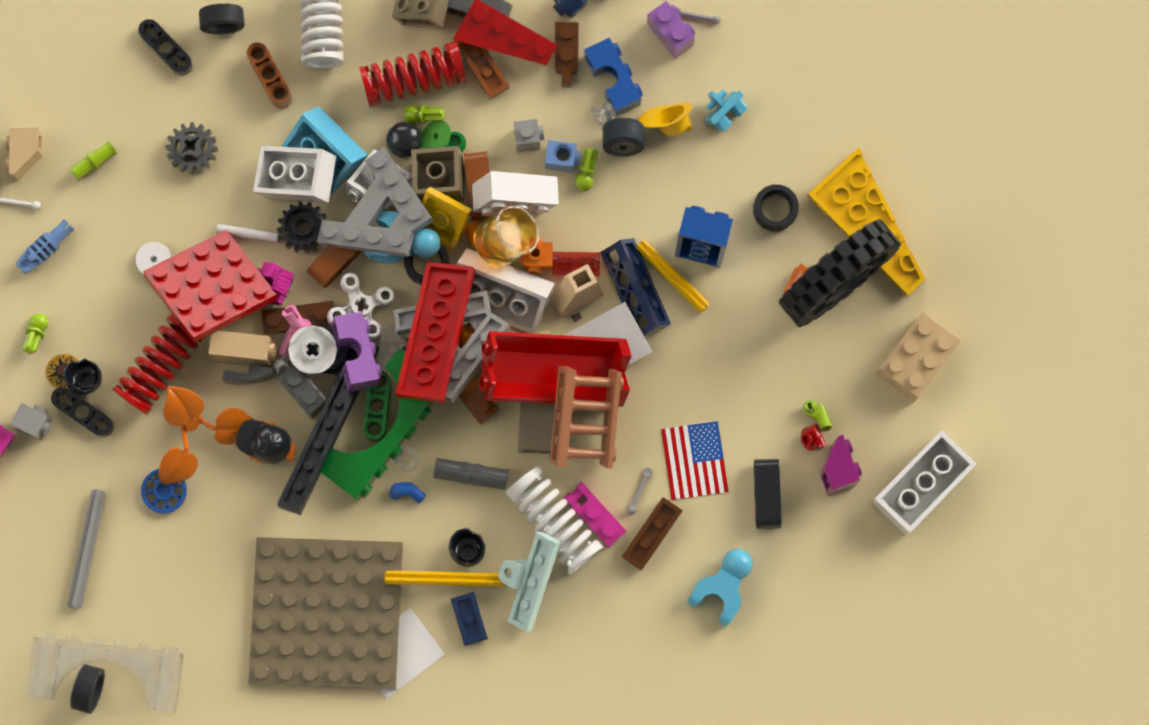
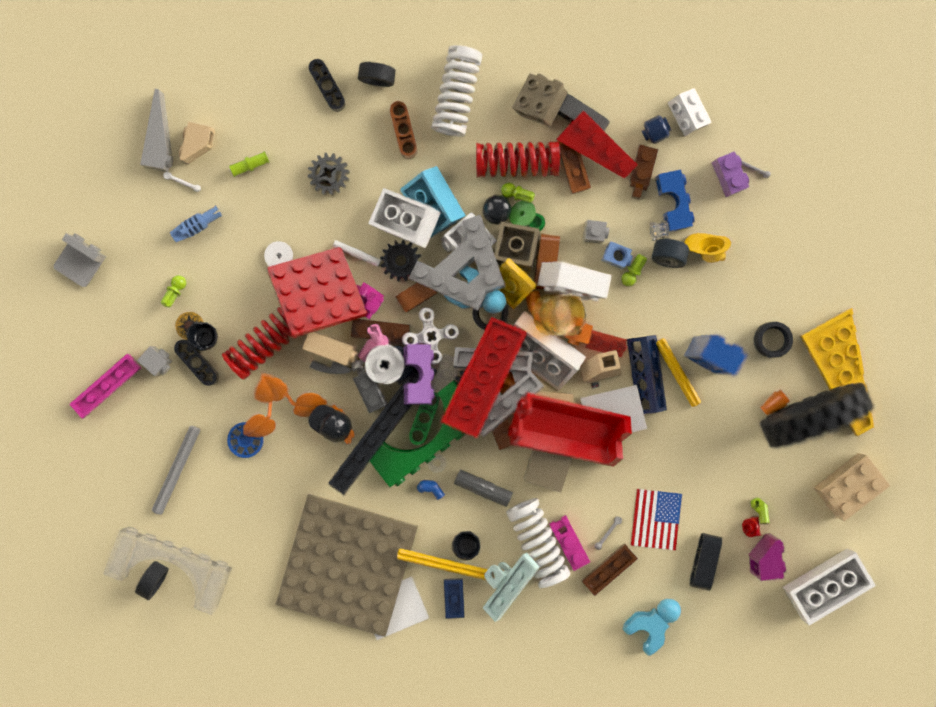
camera: 15 degrees right, 10 degrees up
(566, 404) = (571, 461): nougat fence -> none
(731, 102) = (753, 247): medium azure hips -> none

